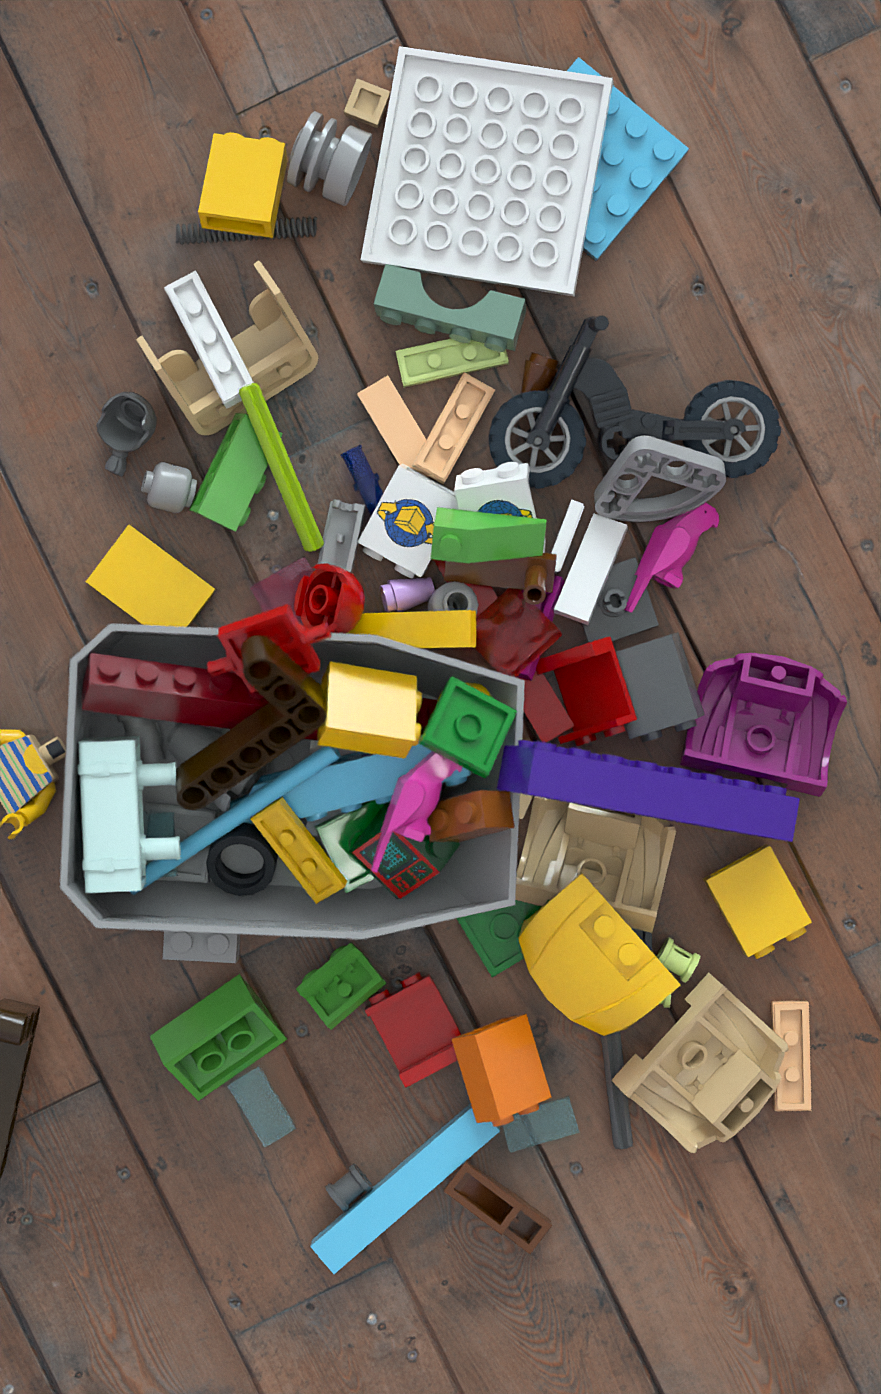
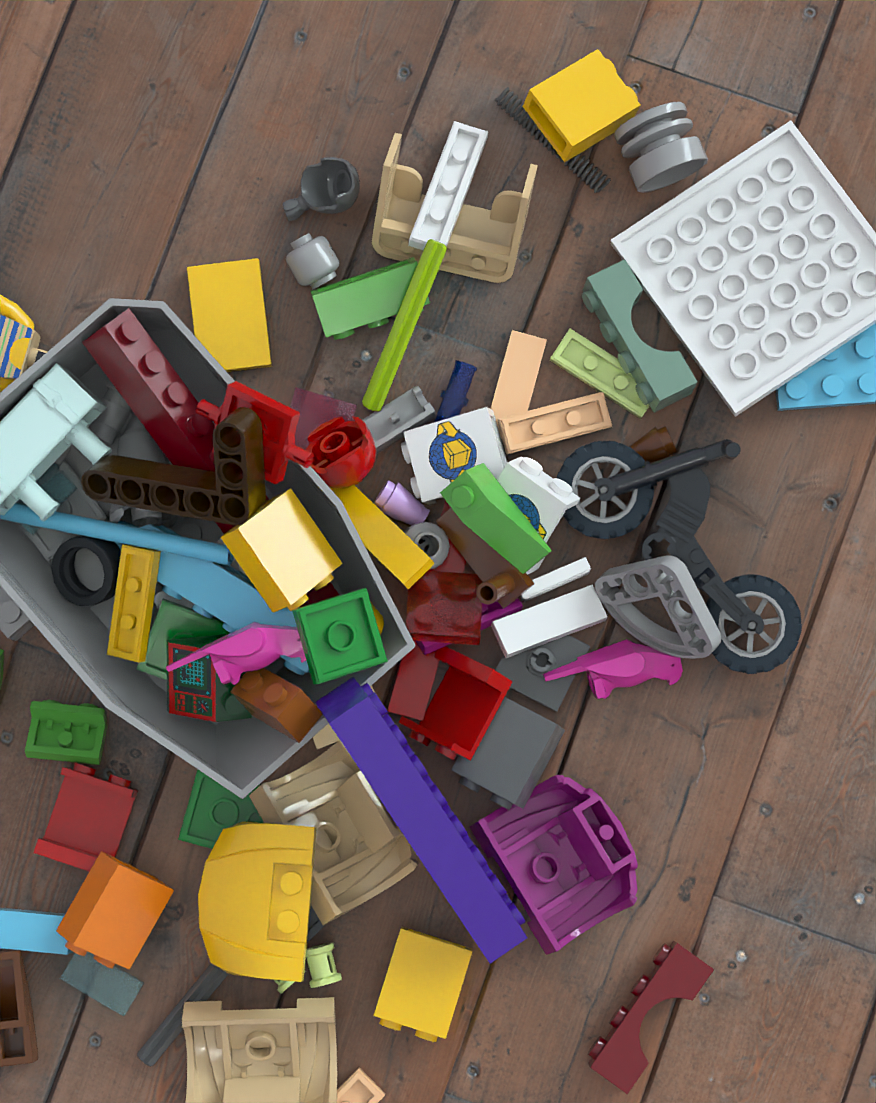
camera: 45 degrees right, 5 degrees down
(367, 103) = (727, 137): tan plate -> none

